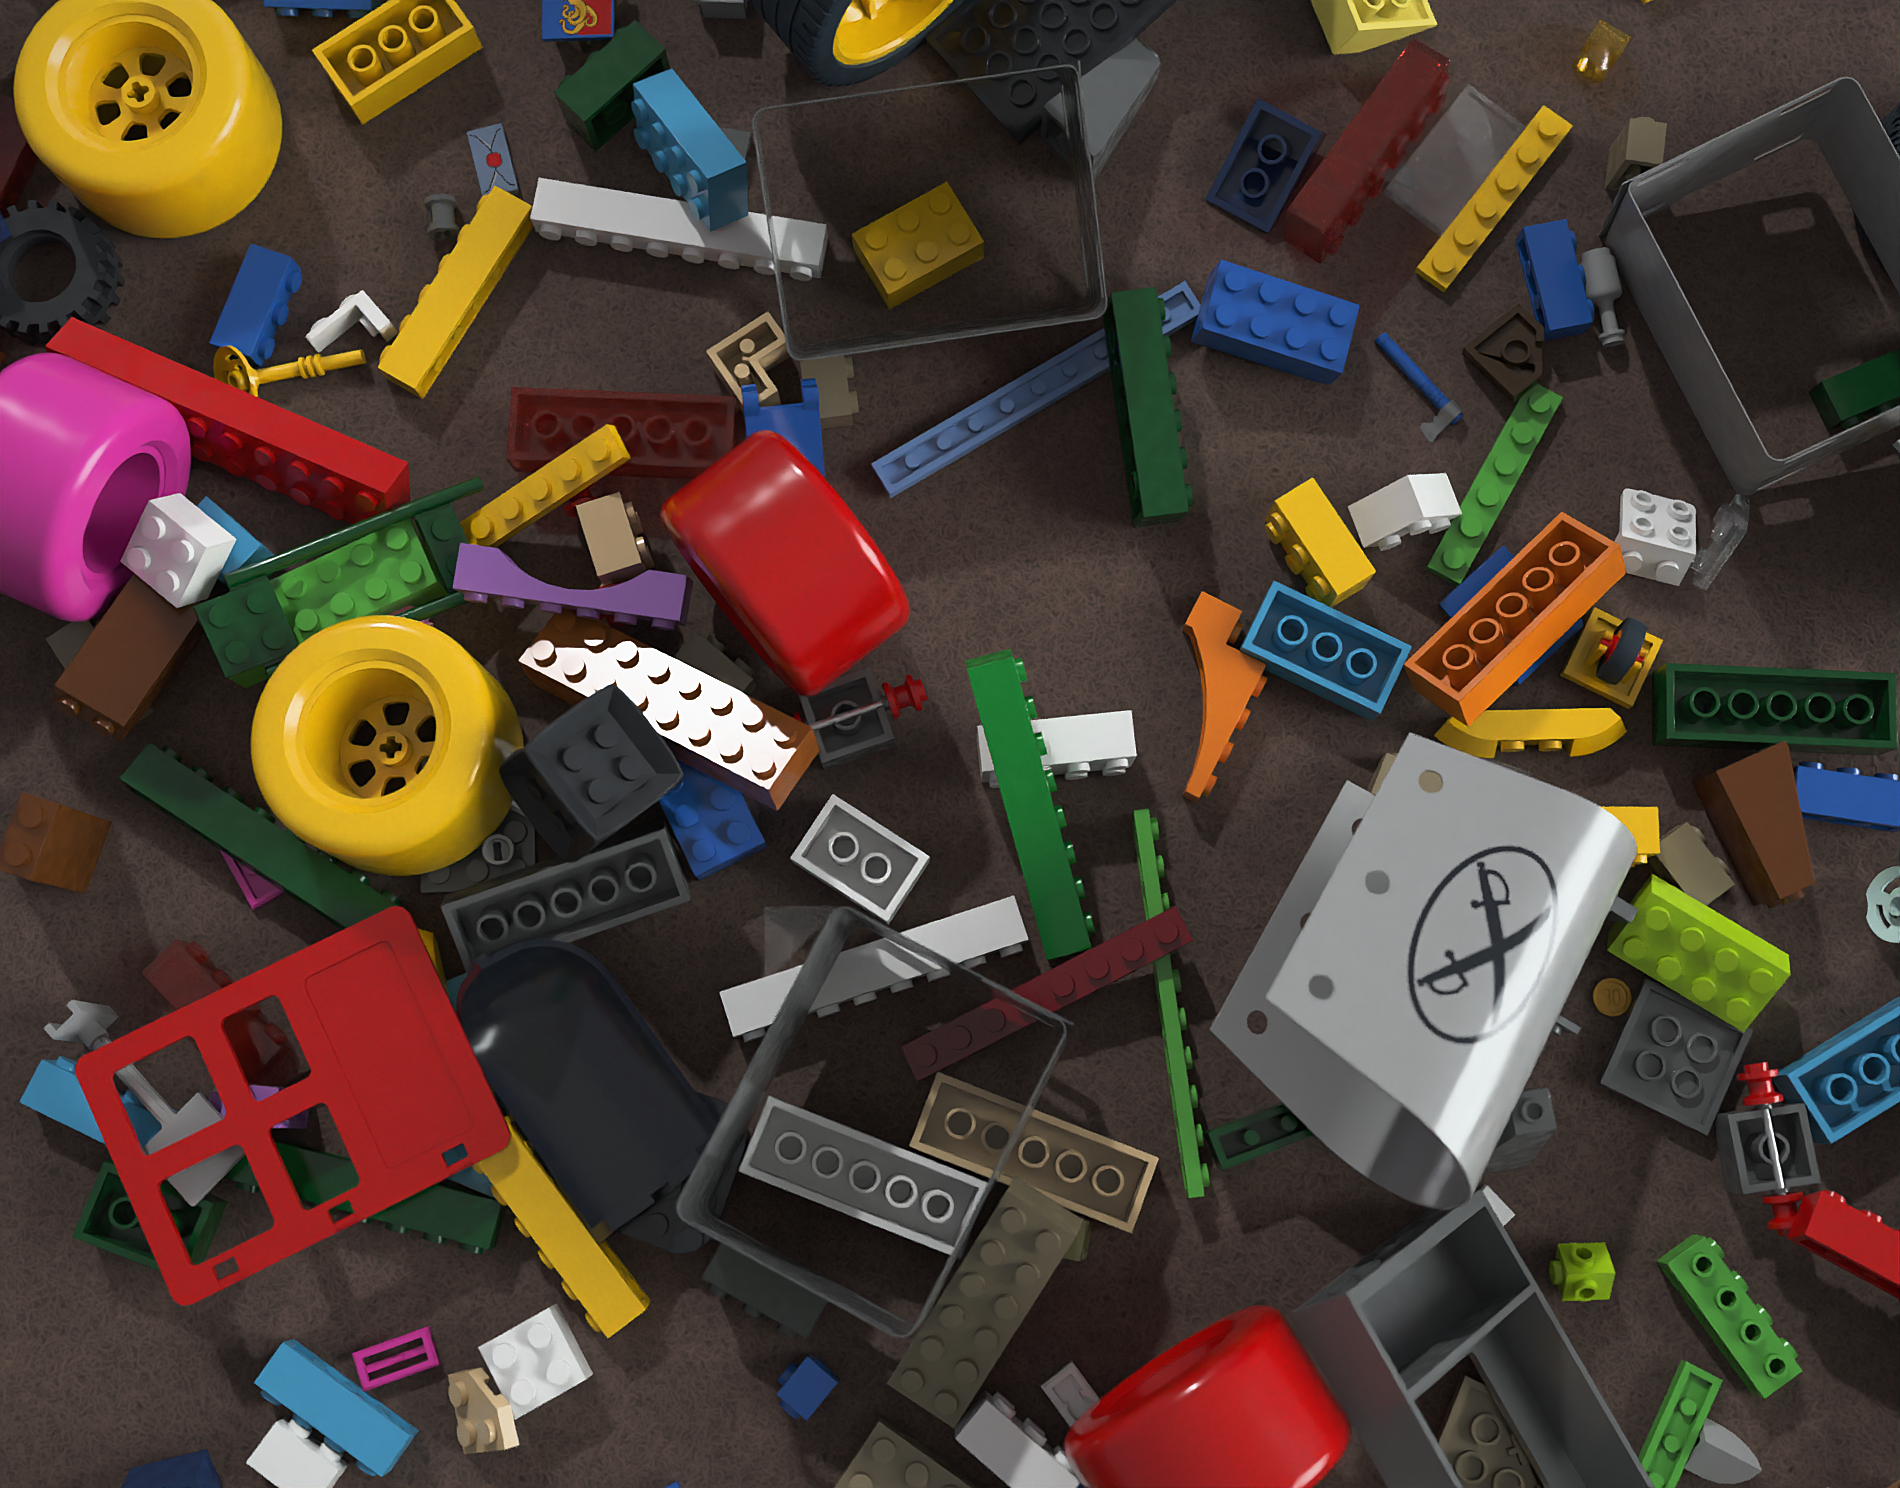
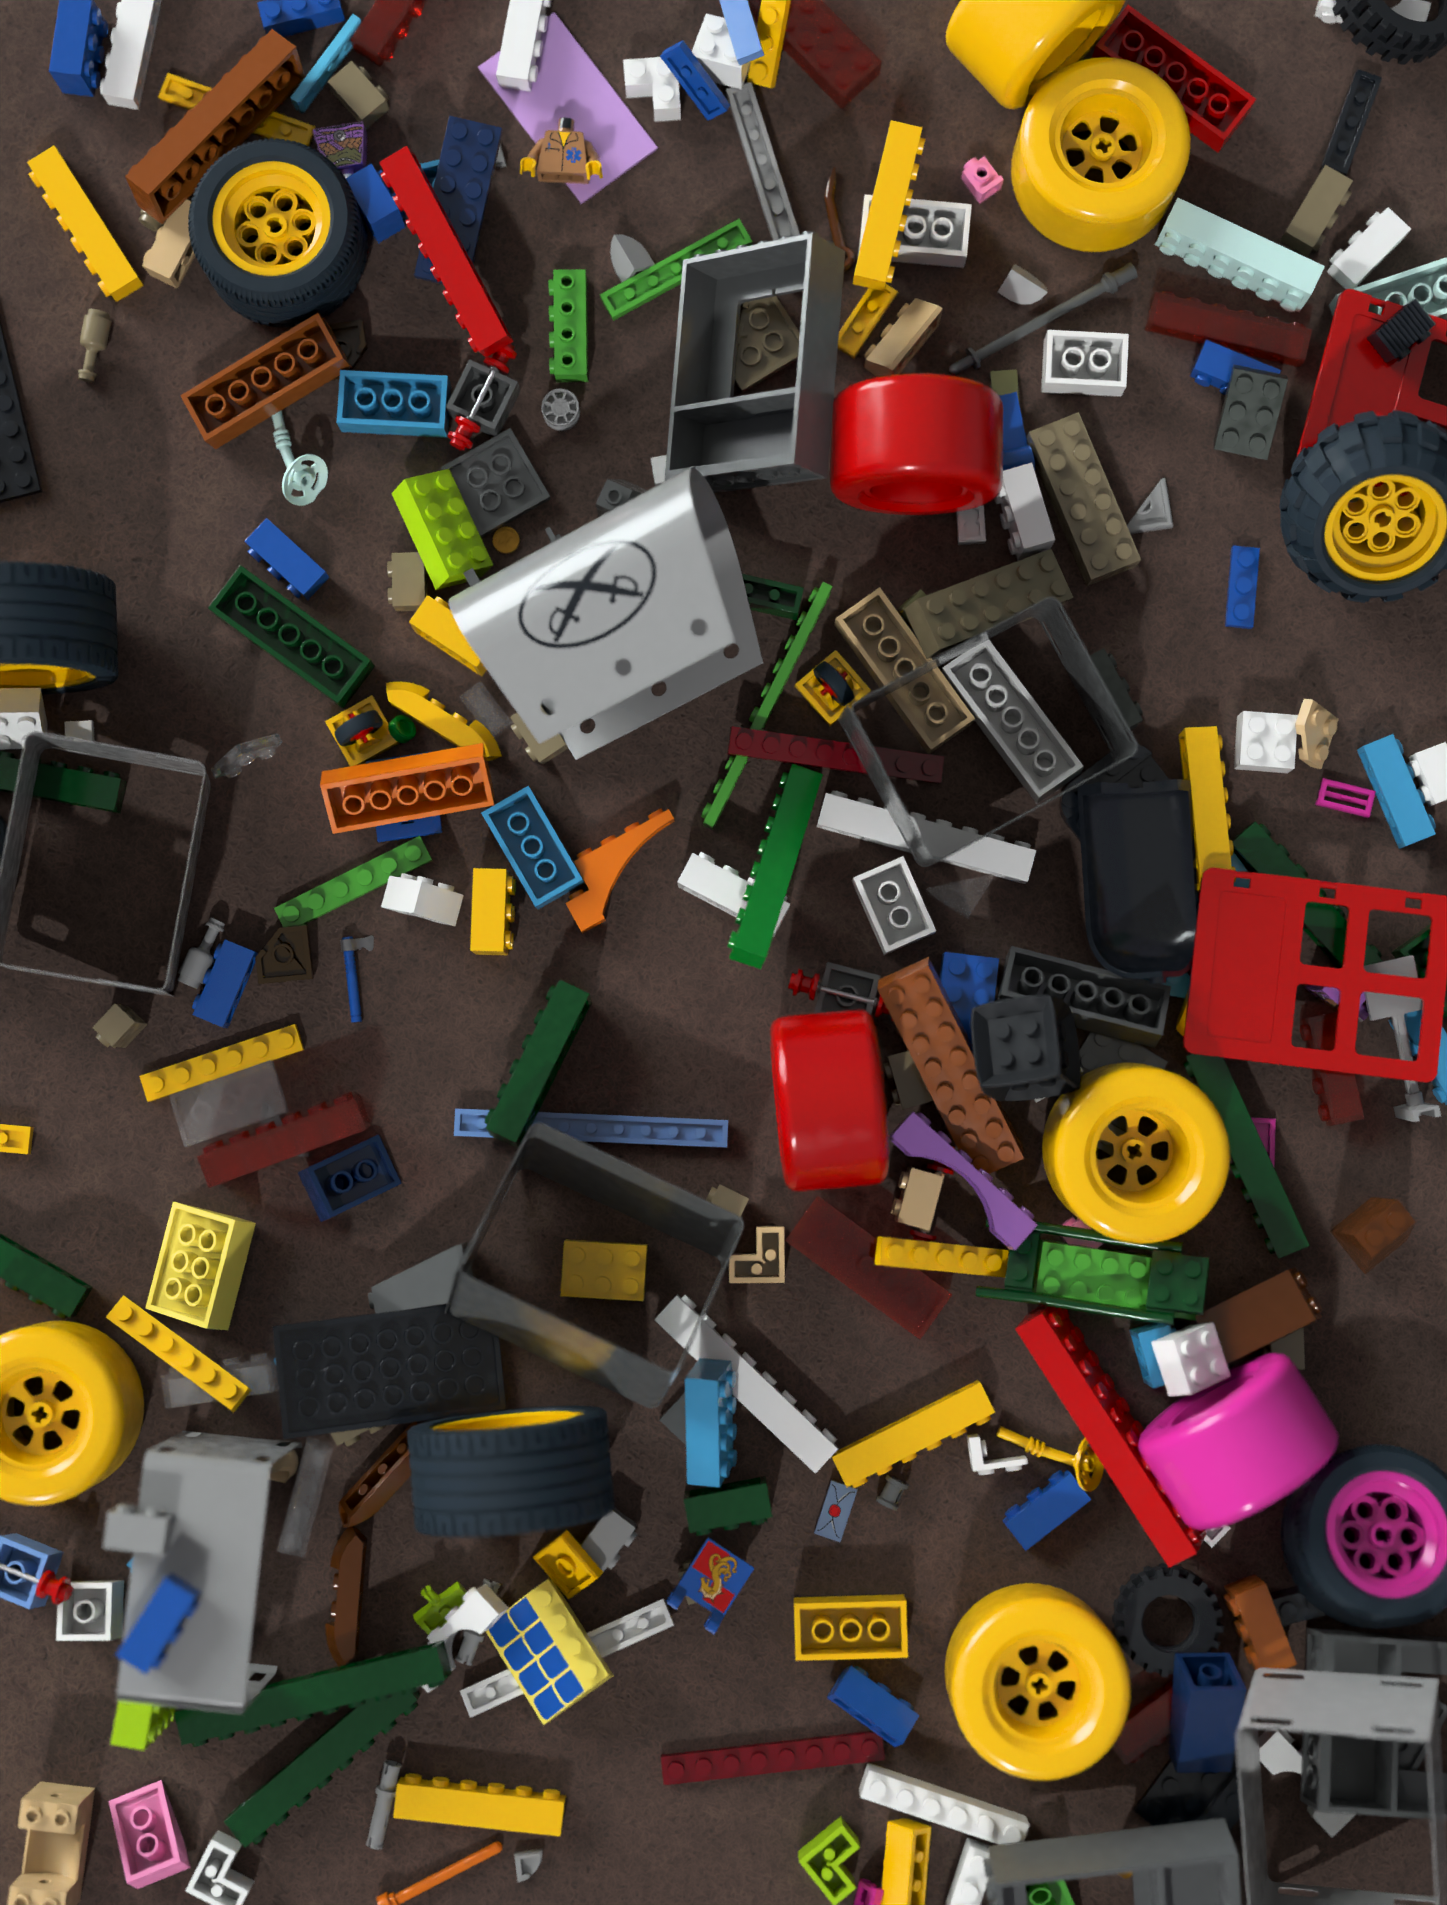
camera: 145 degrees left, 5 degrees up
(506, 850) = (1101, 1052): light grey hinge -> none
(795, 422) = (770, 1198): blue flag -> none
(805, 1386) = (1119, 627): blue brick -> none
(1104, 1076) = (832, 687): none -> yellow plate
(1275, 323) = (418, 1069): blue brick -> none
(1569, 690) = (402, 728): none -> green tile
(1582, 1271) = (636, 401): lime brick -> none
(1600, 52) = (85, 1112): clear yellow piece -> none
(1656, 536) = (281, 787): white bracket -> none
(1664, 1200) = (560, 410): none -> light grey wheel
(1760, 824) = (350, 579): reddish brown slope -> none

